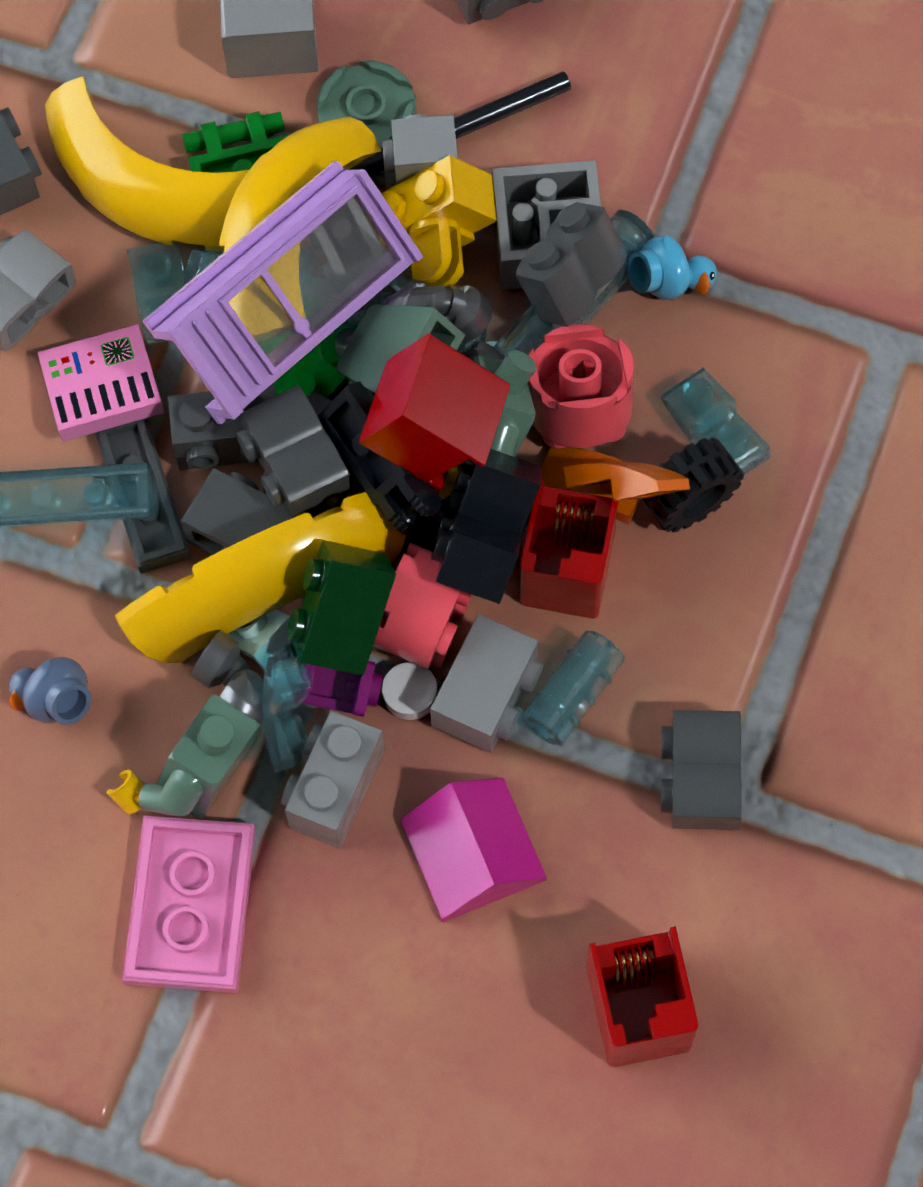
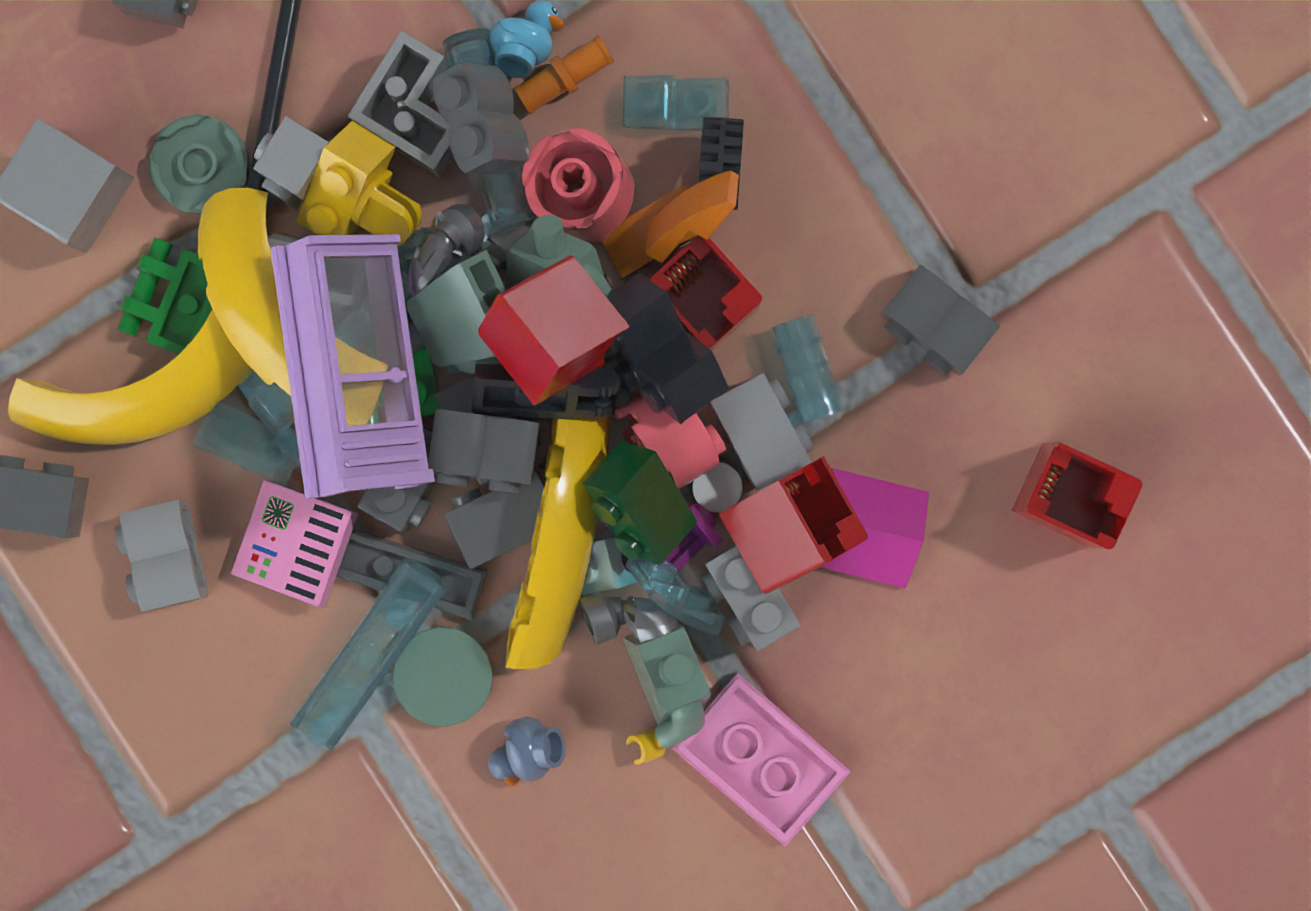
camera: 50 degrees left, 20 degrees up
(70, 581) = (443, 676): none -> sand green tile
(420, 752) = (794, 526): none -> red piece
(665, 321) = (564, 74): none -> orange pin

